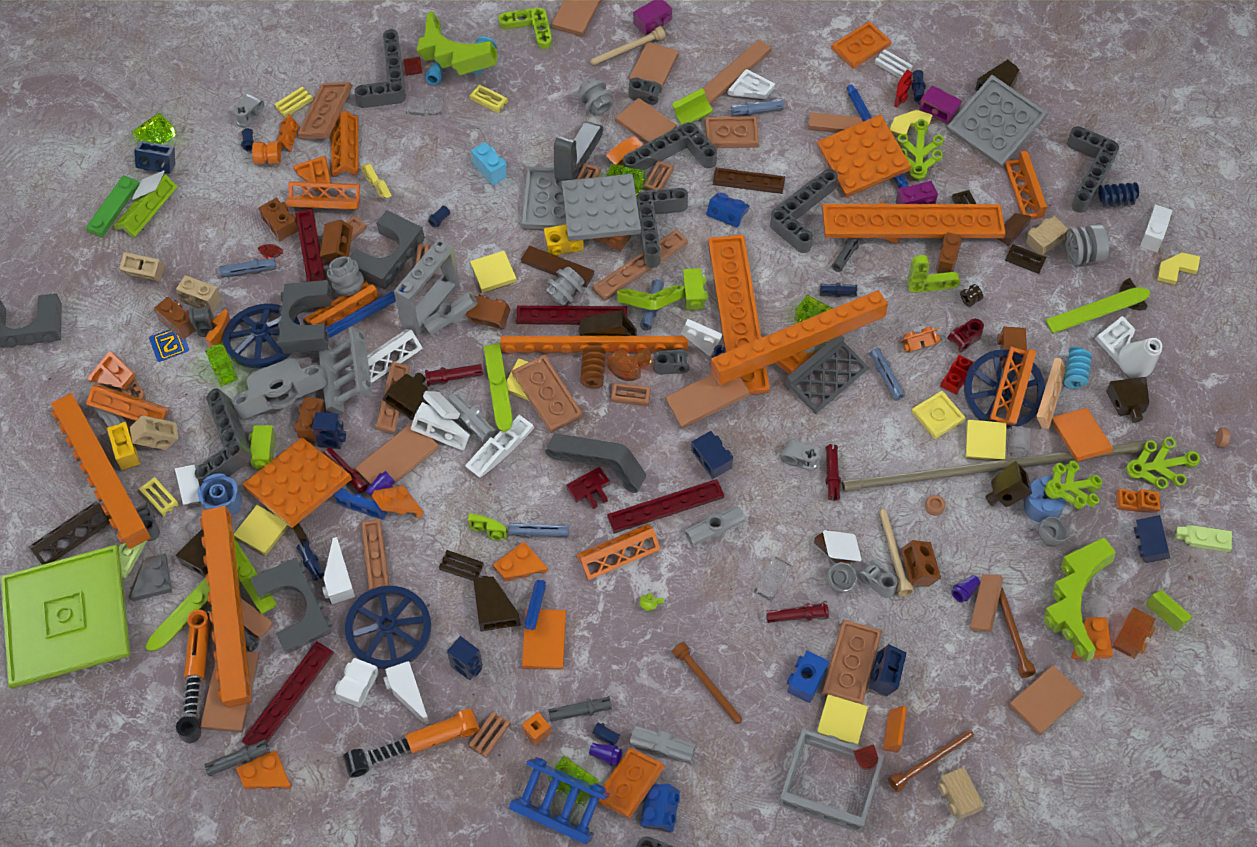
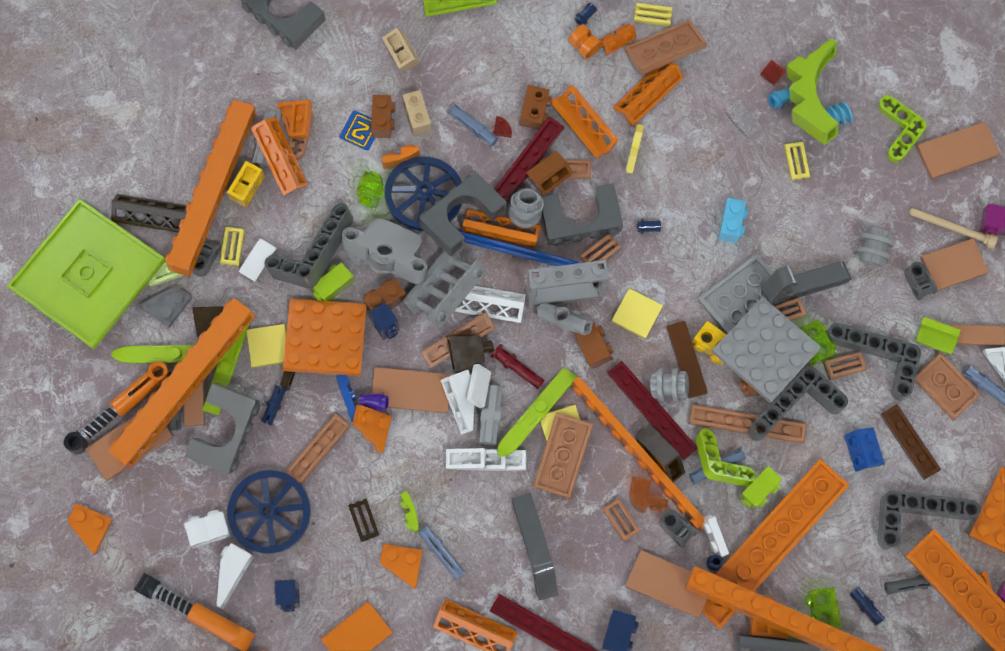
camera: 45 degrees right, 15 degrees up
(154, 432) = (272, 197): tan brick -> none
(202, 320) = (394, 139): dark grey piece -> none
(220, 491) = (262, 283): medium blue brick -> none
(247, 754) = (89, 501): dark grey pin -> none
(289, 694) = (158, 488): dark red tile -> none
(314, 171) = (602, 94): orange wing -> none
(336, 576) = (275, 438): white slope -> none
(357, 482) = (367, 360): dark red pin -> none
(385, 92) = (749, 64): dark grey beam -> none
(493, 605) = (350, 573): dark brown slope -> none
(535, 604) = (375, 606): blue axle -> none
(587, 485) = (511, 557): dark red hinge -> none
(593, 366) = (616, 470): dark orange piece -> none
(617, 153) = (844, 315): orange slope -> none
(644, 121) = (890, 308): nougat tile -> none

